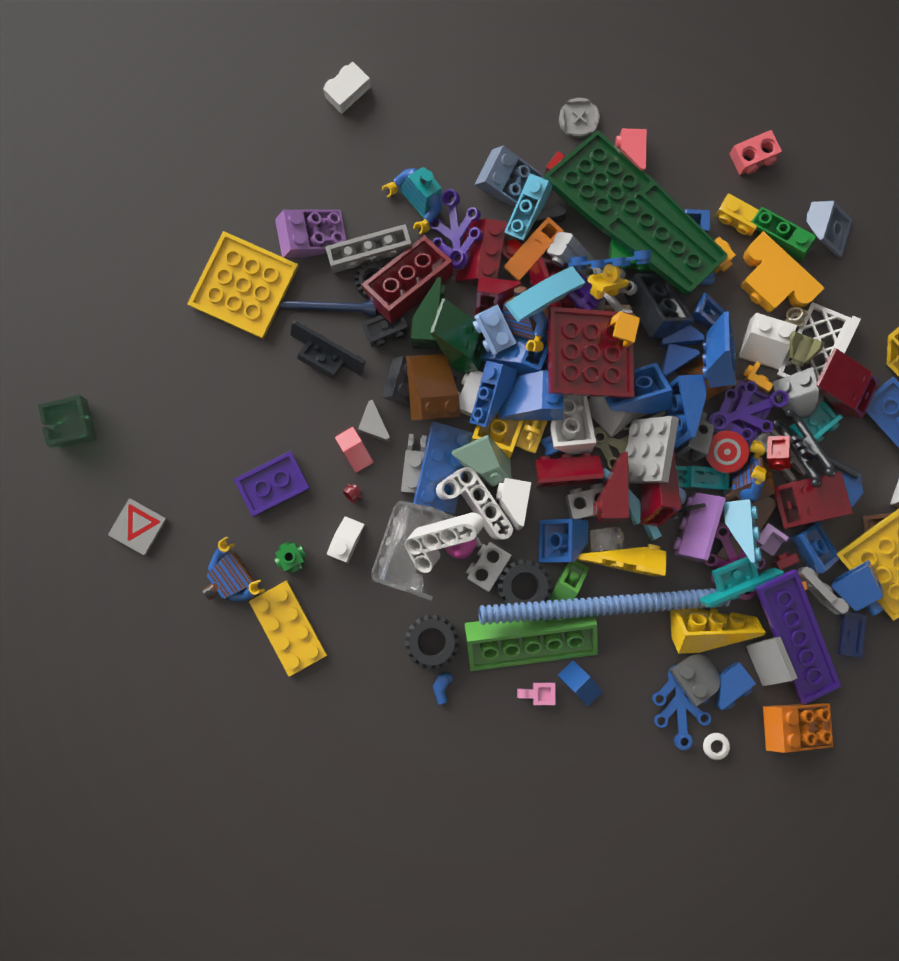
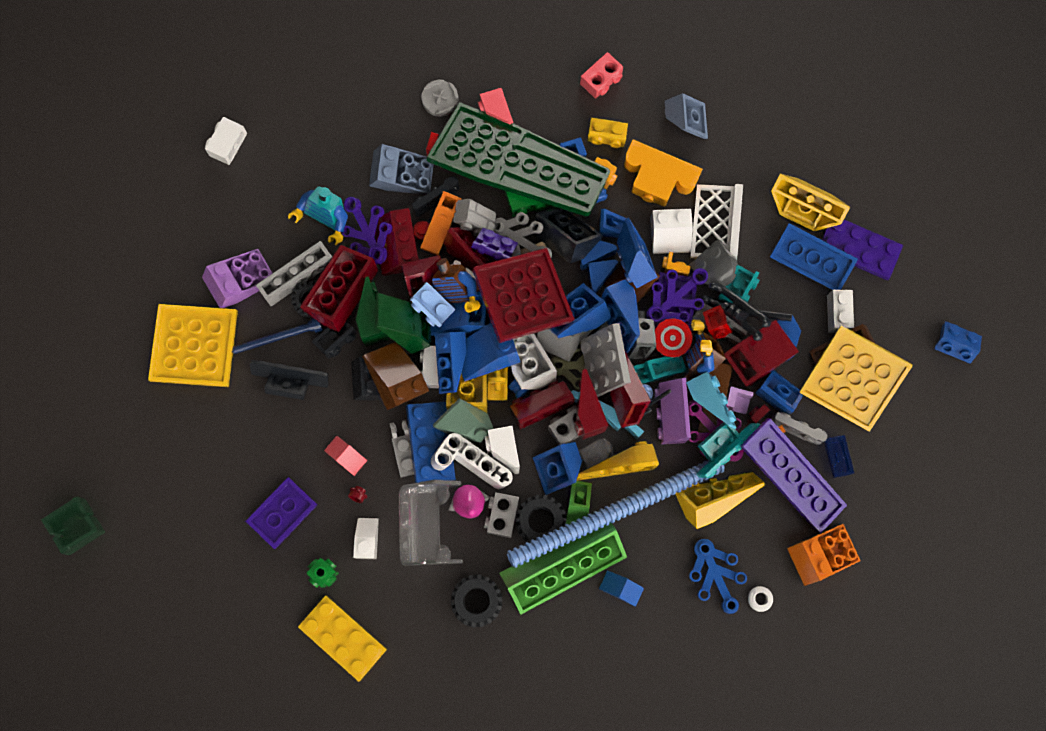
camera: 25 degrees left, 5 degrees down
(137, 527) = (171, 597): light grey tile -> none
(230, 576) = (272, 610): torso -> none
(372, 423) = (353, 426): light grey slope -> none
(426, 540) = (438, 512): white beam -> none
(440, 685) = (498, 638): blue arm -> none
(528, 206) = (423, 188): medium azure slope -> none
(541, 693) = (590, 610): bright pink plate -> none
(544, 293) = (464, 257): medium azure slope -> none
(580, 263) = (485, 220): blue plant -> none
(607, 282) = (514, 229): yellow hips -> none
(625, 327) = (544, 262): light orange panel -> none
(697, 678) = (720, 544): dark grey slope -> none
(733, 684) = (753, 539): blue slope -> none
(771, 661) = (779, 505): light grey tile -> none
(787, 235) = (656, 136): green slope -> none
(796, 316) = (688, 201): dark tan plate -> none
(803, 348) = (704, 226): olive brick -> none
(847, 384) = (752, 243): dark red slope -> none
(860, 588) = (830, 413): blue torso -> none

